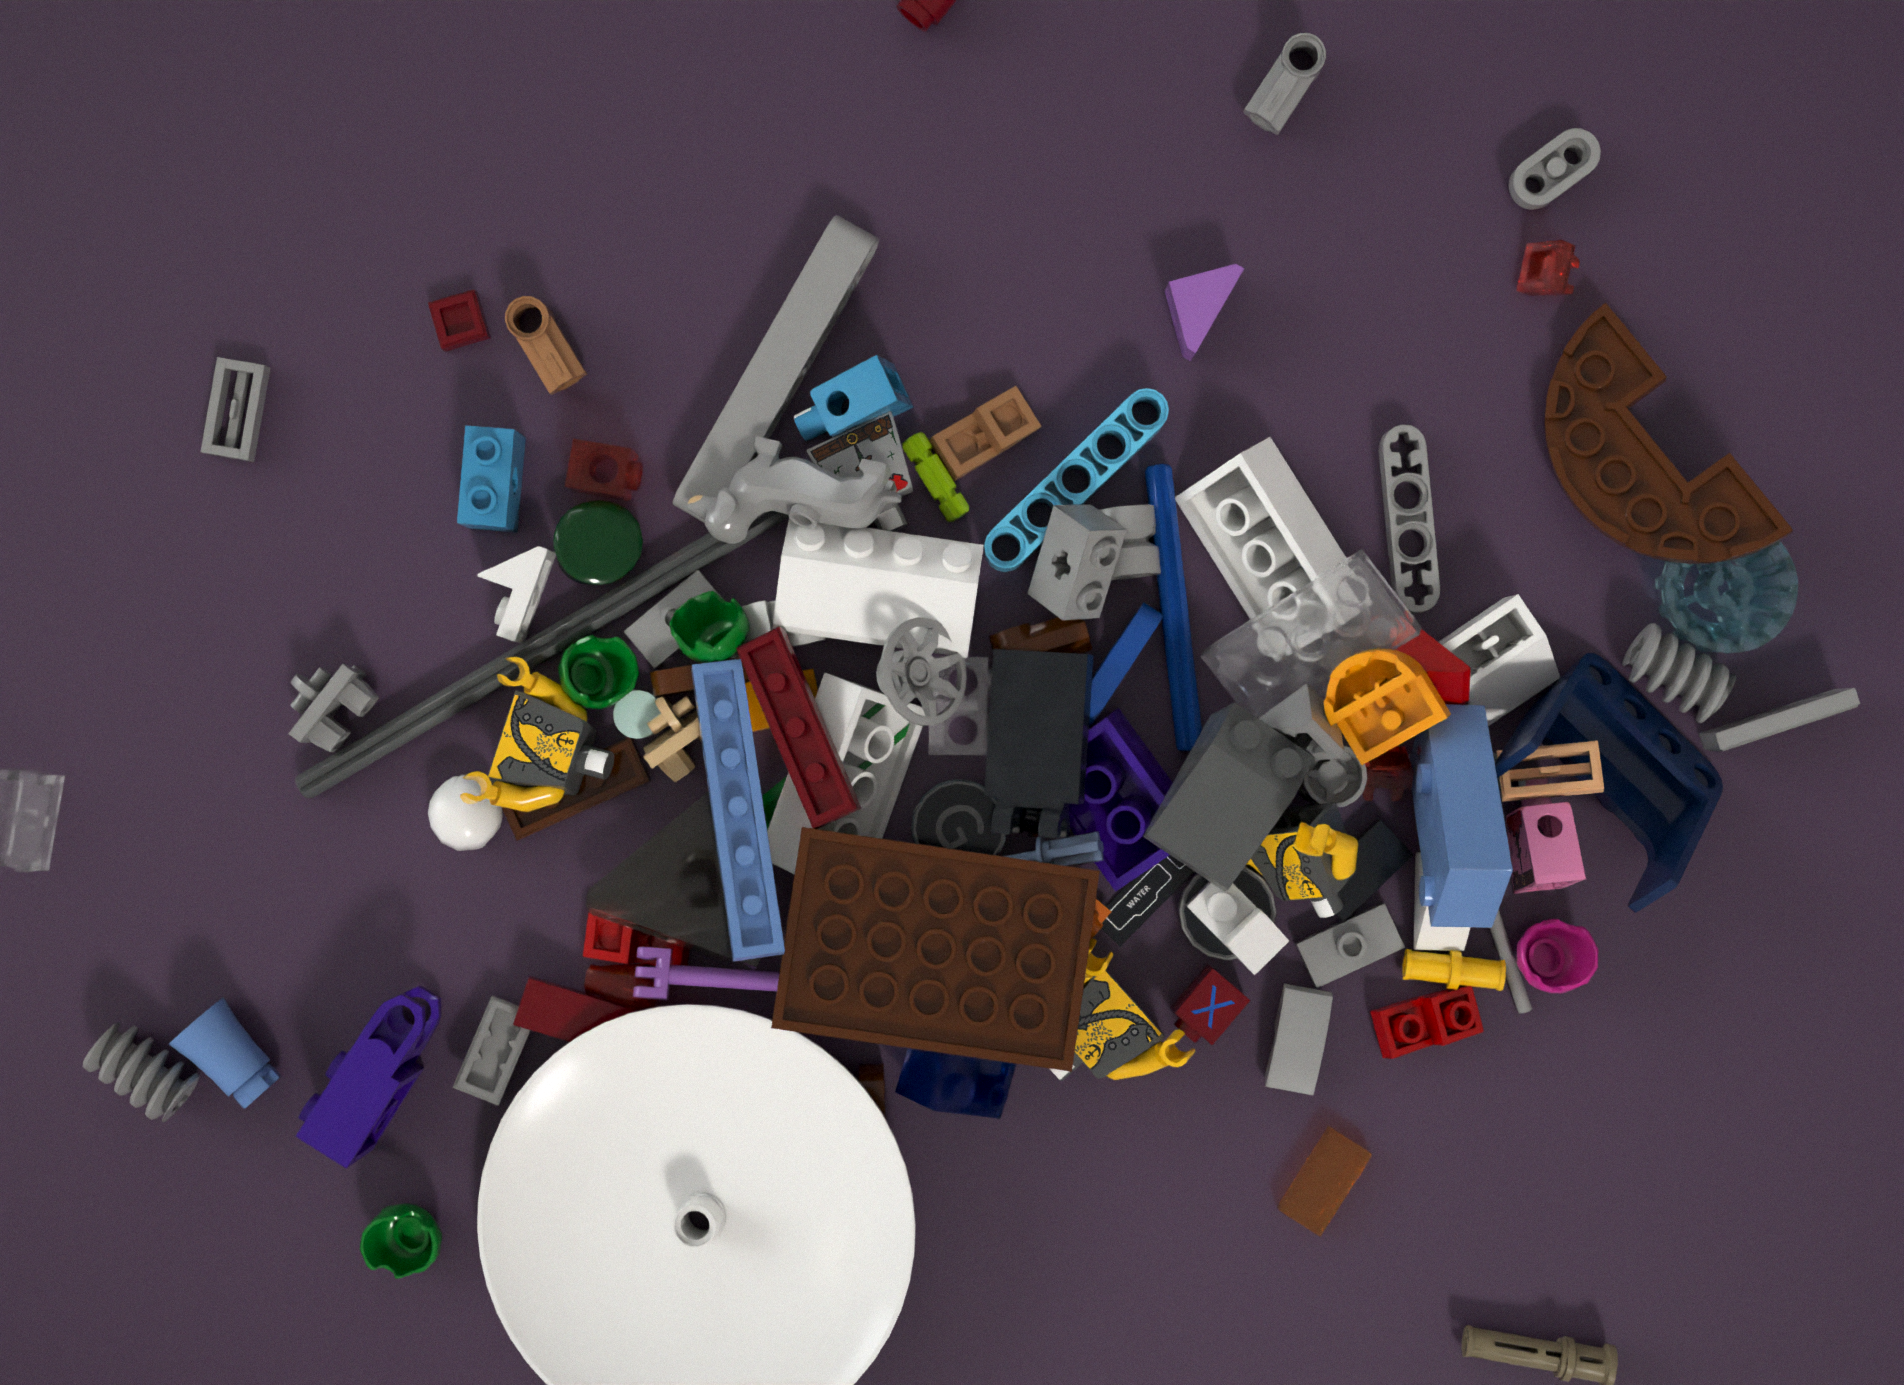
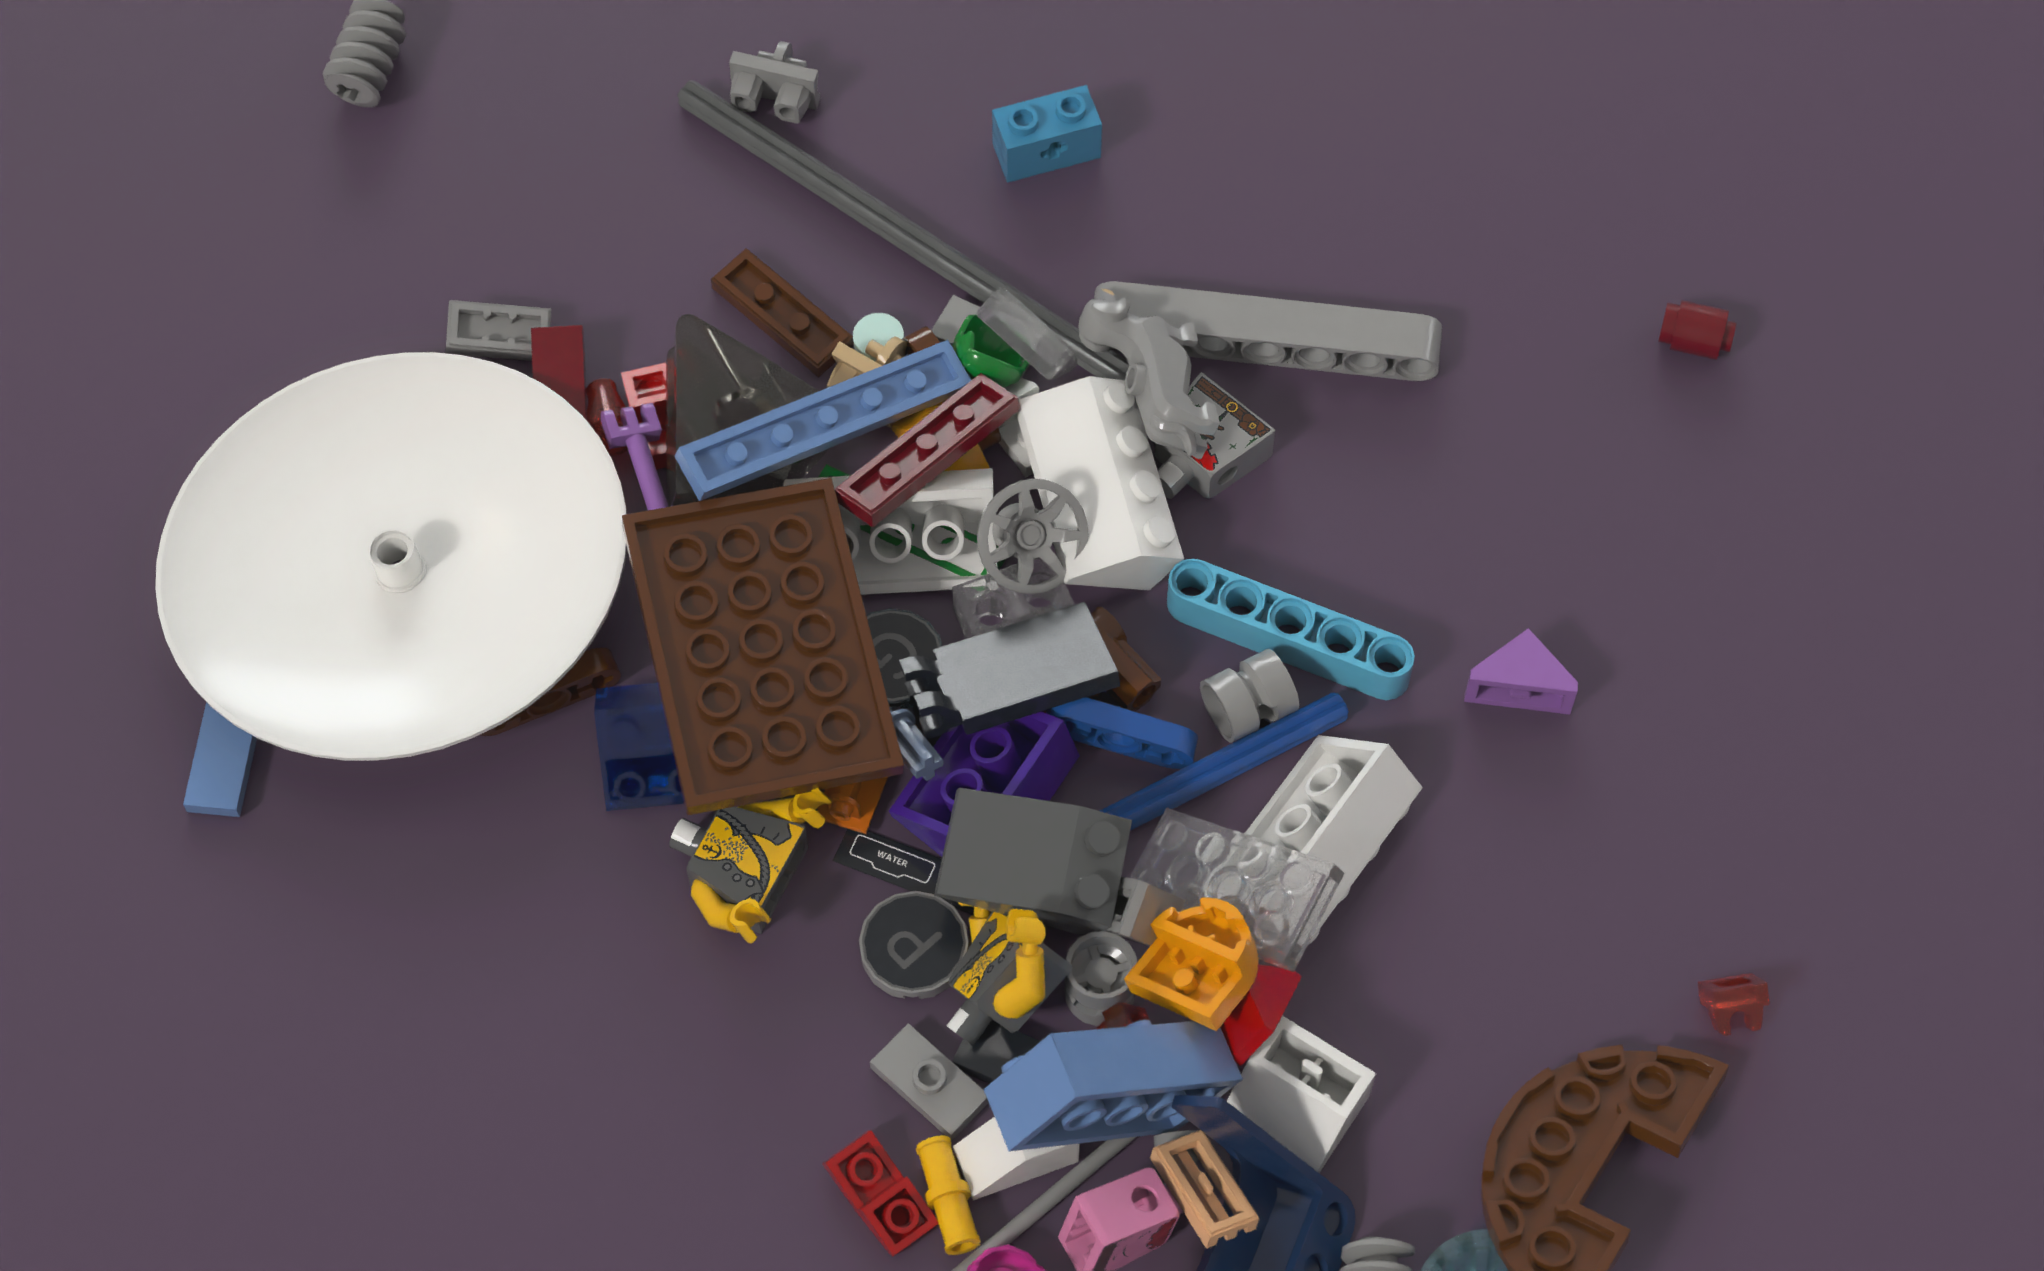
camera: 60 degrees right, 25 degrees down
(227, 1054) = (409, 112): medium blue plant -> none
(370, 1080) = (431, 229): dark purple brick -> none
(401, 1240) = (281, 314): green hair -> none
(459, 320) = (1183, 64): dark red tile -> none
(459, 823) = (718, 227): white hair -> none
(527, 578) = (964, 198): white slope -> none
(541, 748) = (809, 258): torso -> none
(546, 346) = (1195, 133): medium nougat piece -> none
(583, 463) = (1099, 203): clear red brick -> none
(597, 542) = (1027, 241): dark green piece -> none
(598, 671) = (904, 281): green hair -> none
(705, 587) = (1027, 334): none -> clear slope
(871, 390) = (1280, 396): dark azure torso -> none
(935, 477) = (1232, 508): lime axle -> none
(985, 433) = (1294, 538): medium nougat slope -> none
(1076, 561) = (1207, 645): light grey brick -> none
(1208, 1006) = (806, 957): dark red brick -> none
(1238, 925) = (904, 950): white slope -> none
(1285, 84) = (1782, 672): light grey piece -> none
(1298, 1039) = (807, 1063): light grey slope -> none
(1324, 1181) = (664, 1154): clear orange tile -> none
(1417, 519) = (1401, 959): light grey beam -> none
(1552, 170) = (1841, 962): light grey plate -> none

